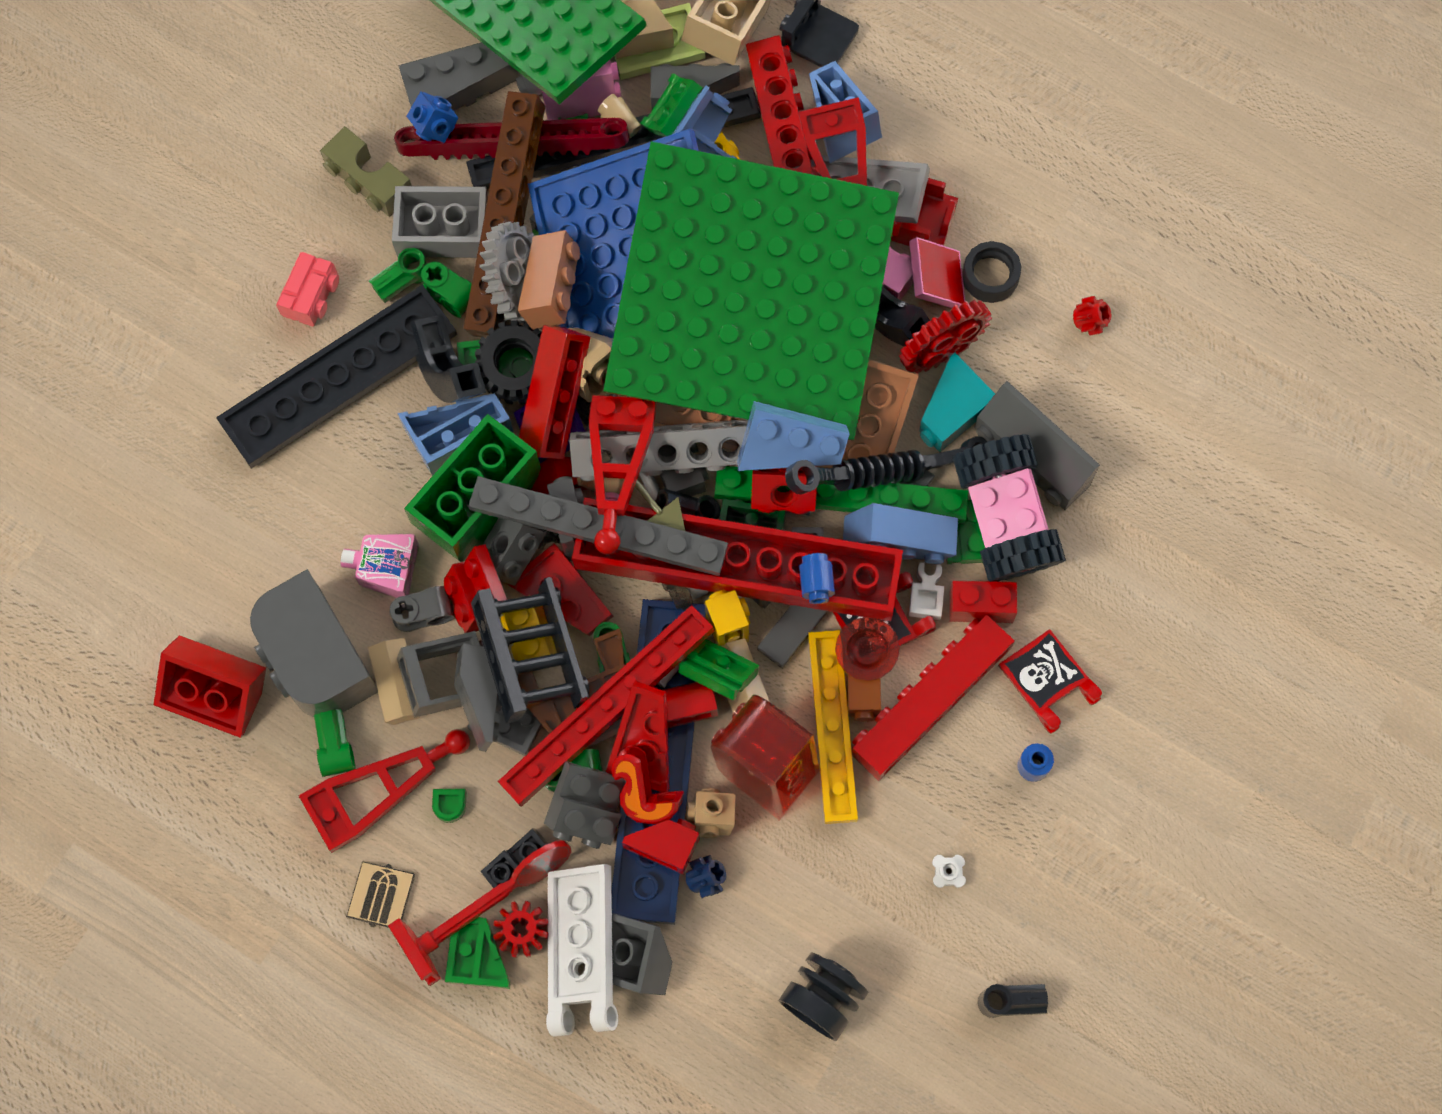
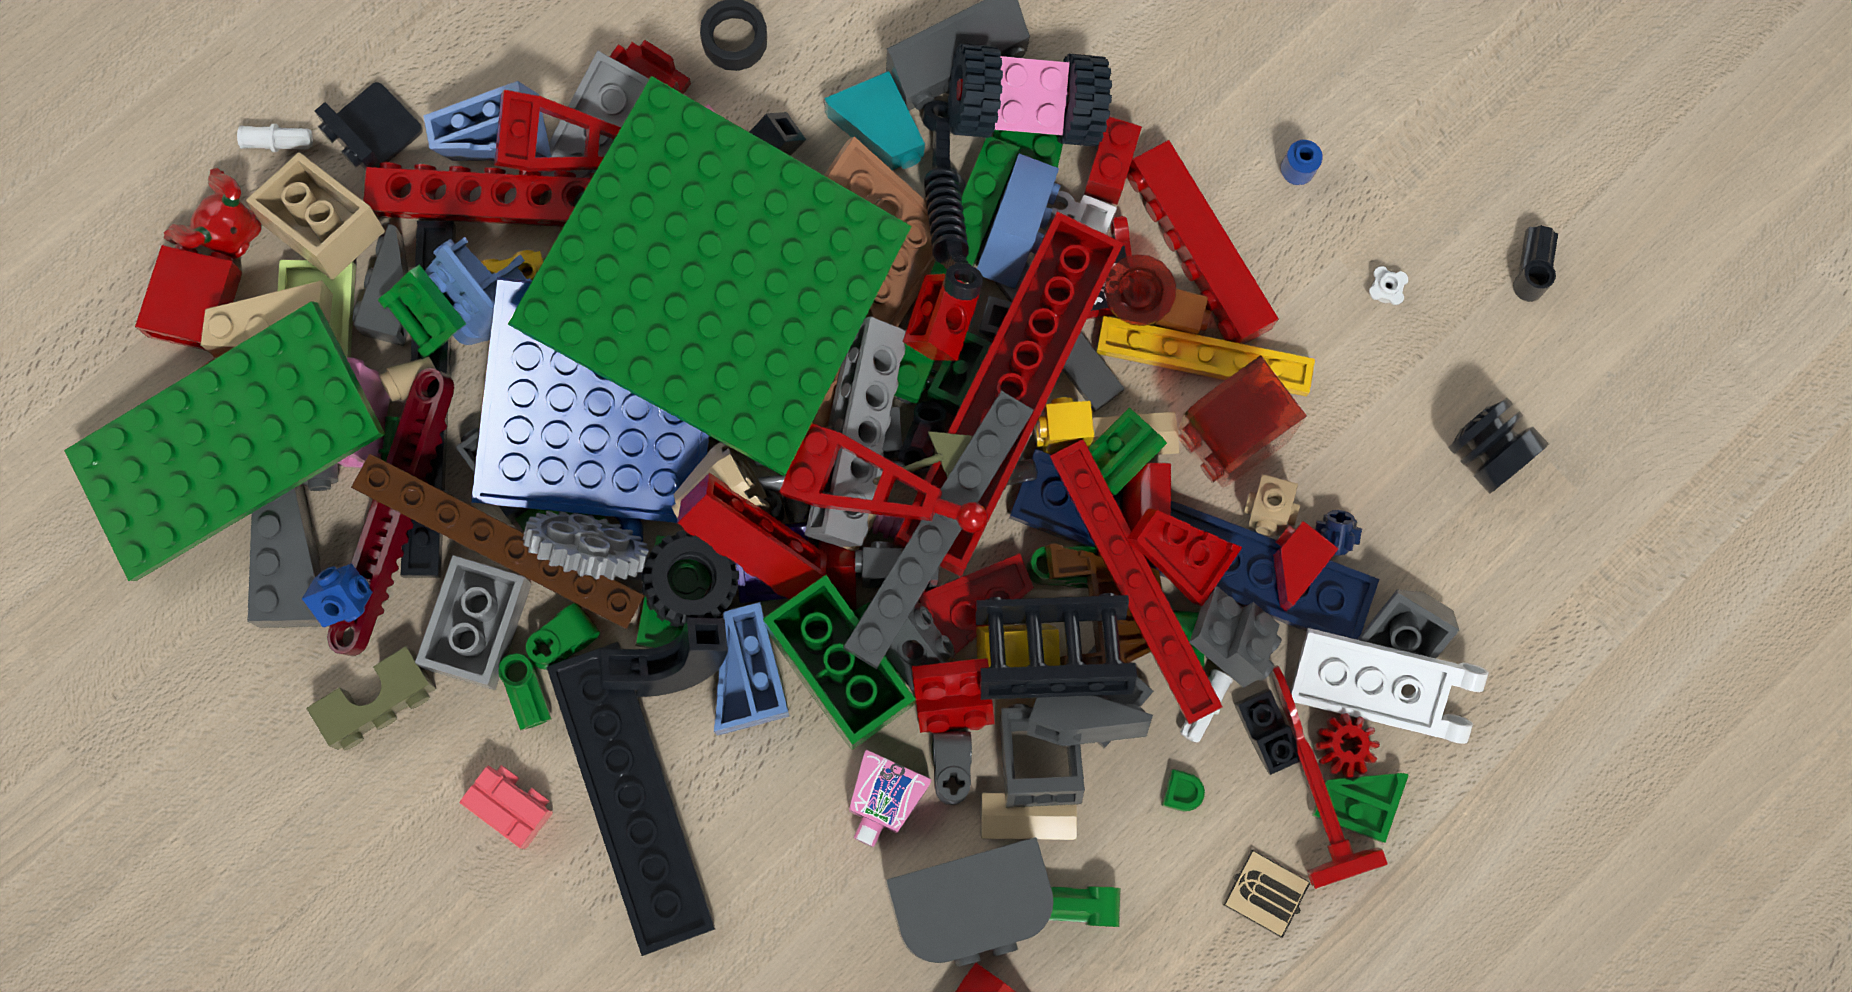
camera: 85 degrees left, 5 degrees up
(330, 814) = (1167, 927): red plate -> none
(535, 806) = (1195, 730): none -> white axle
(549, 279) = (611, 505): nougat brick -> none
(636, 794) = (1248, 577): red animal -> none
(783, 437) = (902, 290): medium blue wedge -> none
(816, 578) = (1070, 307): blue brick -> none
(937, 273) = (723, 89): red tile -> none
(945, 336) = (810, 98): red gear -> none
(1046, 674) = (1204, 125): flag -> none

